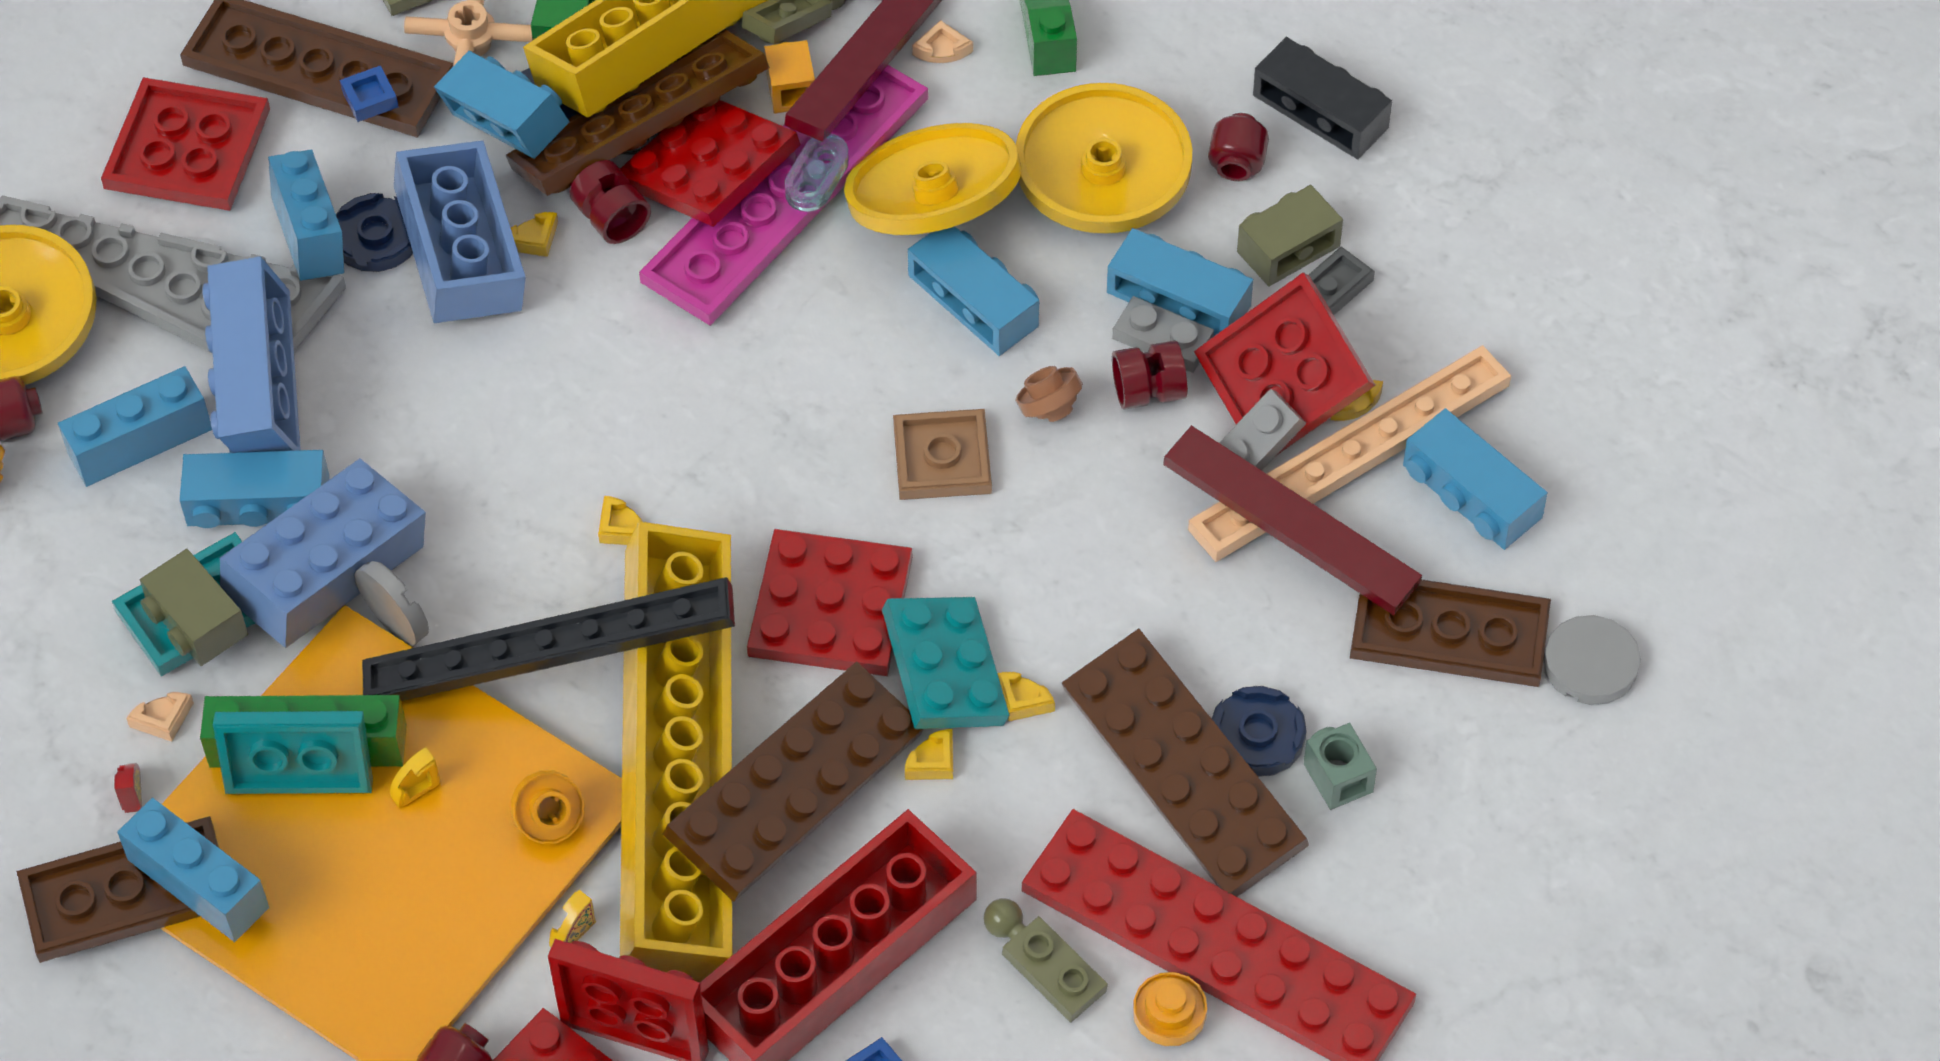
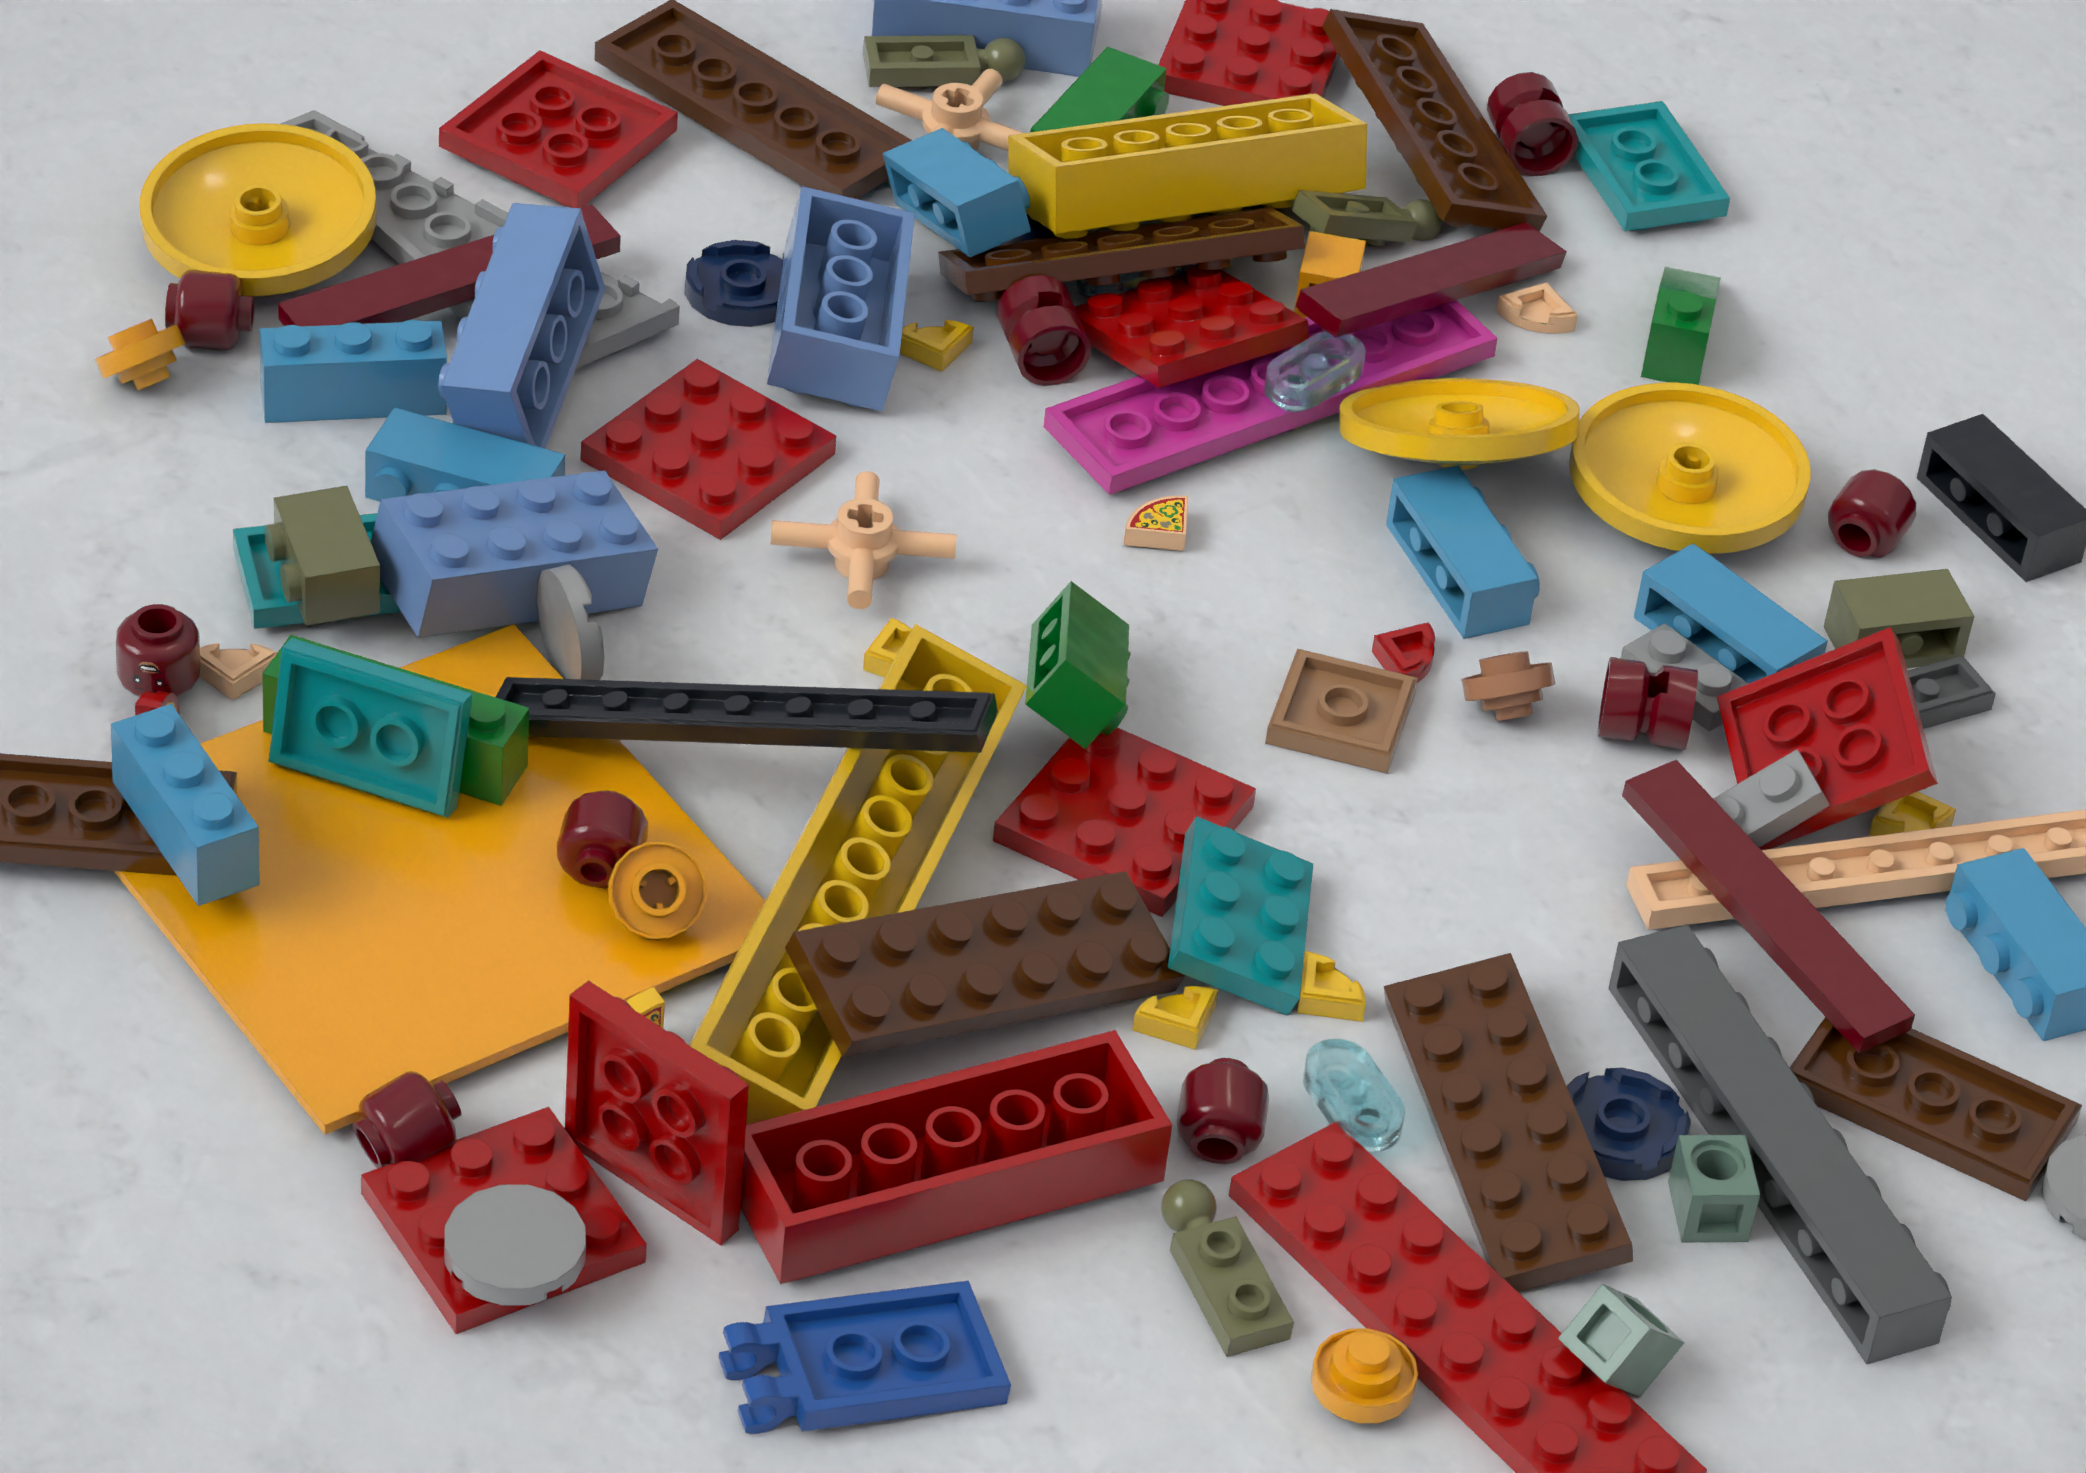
camera: 15 degrees right, 15 degrees down
(108, 733) = (158, 651): none -> dark red head
(163, 321) = (418, 285): none -> dark red tile
(306, 214) = (664, 227): dark azure brick -> none
(369, 93) = (800, 136): blue plate -> none
(413, 392) = (708, 448): none -> red plate
(415, 778) = (508, 812): yellow tile -> none
(489, 776) = (597, 834): none -> dark red head
(558, 436) = (863, 539): none -> light nougat bar
(755, 338) = (1159, 524): none -> tile
(757, 500) = (1079, 666): none -> green brick
(966, 386) = (1406, 650): none -> red tile
(996, 831) = (1222, 1111): none -> dark red head
(1079, 783) = (1354, 1093): none -> clear light blue plate
(1328, 919) = (1621, 1340): none -> sand green brick
(1344, 688) = (1805, 1175): none -> dark grey brick

